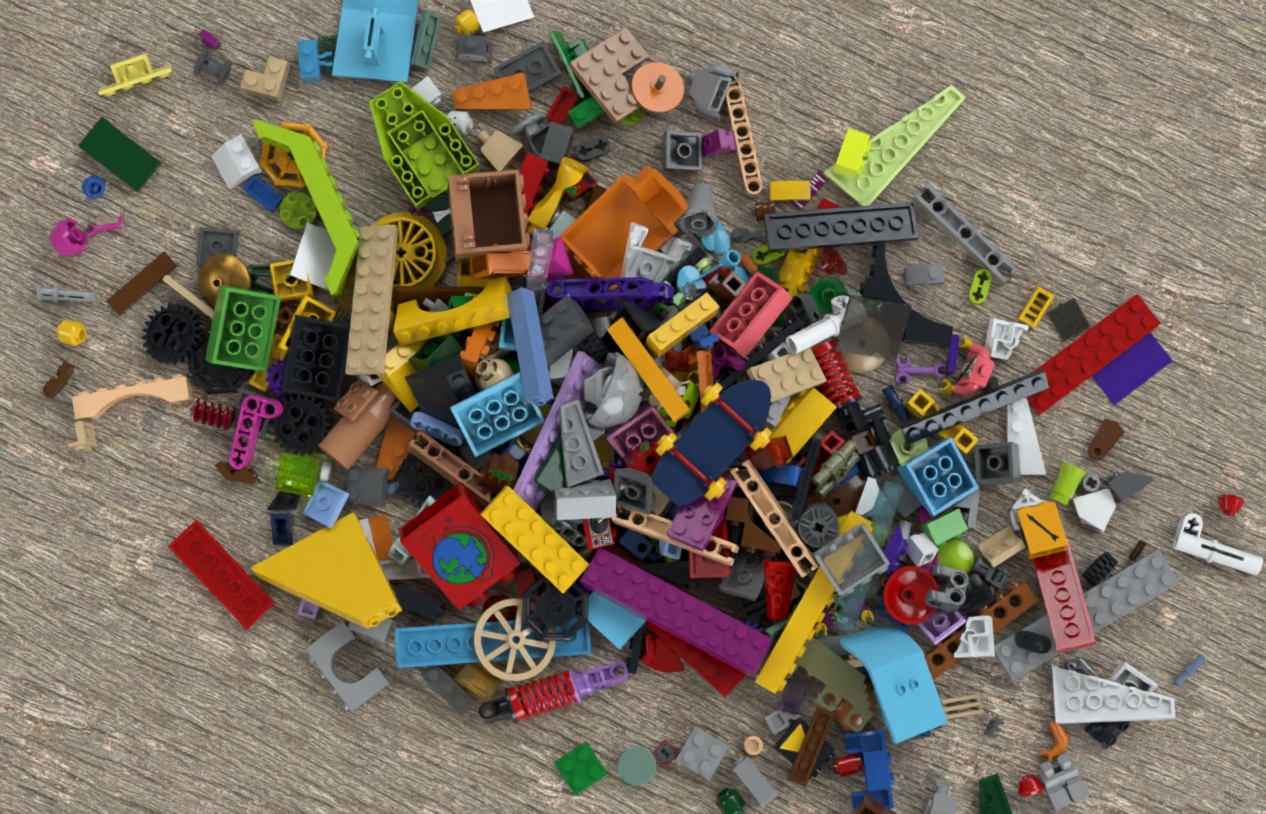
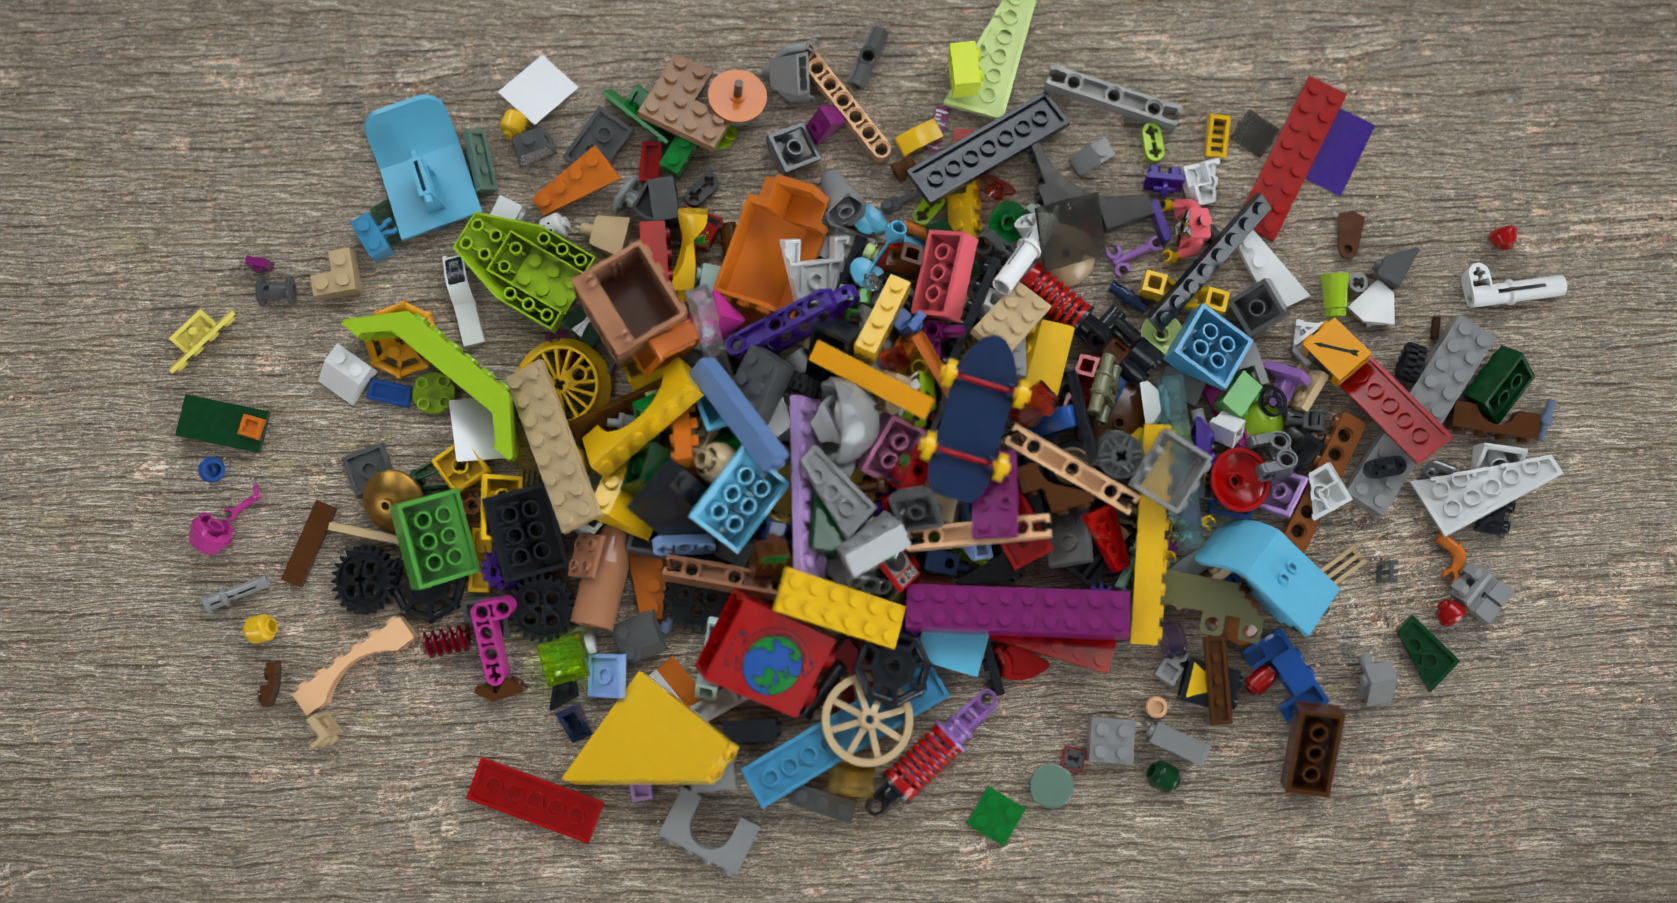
camera: 30 degrees left, 0 degrees up
(141, 168) = (251, 427): none -> orange tile
(357, 148) = (463, 301): none -> white piece
(493, 598) = (824, 688): none -> black pin
(606, 453) = (880, 485): none -> reddish brown piece
(789, 98) = (862, 68): none -> dark grey piece
(972, 324) = (1163, 182): none -> dark purple hips
(985, 539) = (1284, 387): none -> medium lavender piece
(1123, 635) = (1467, 418): none -> reddish brown arch
(1165, 622) = (1500, 383): none -> dark green slope

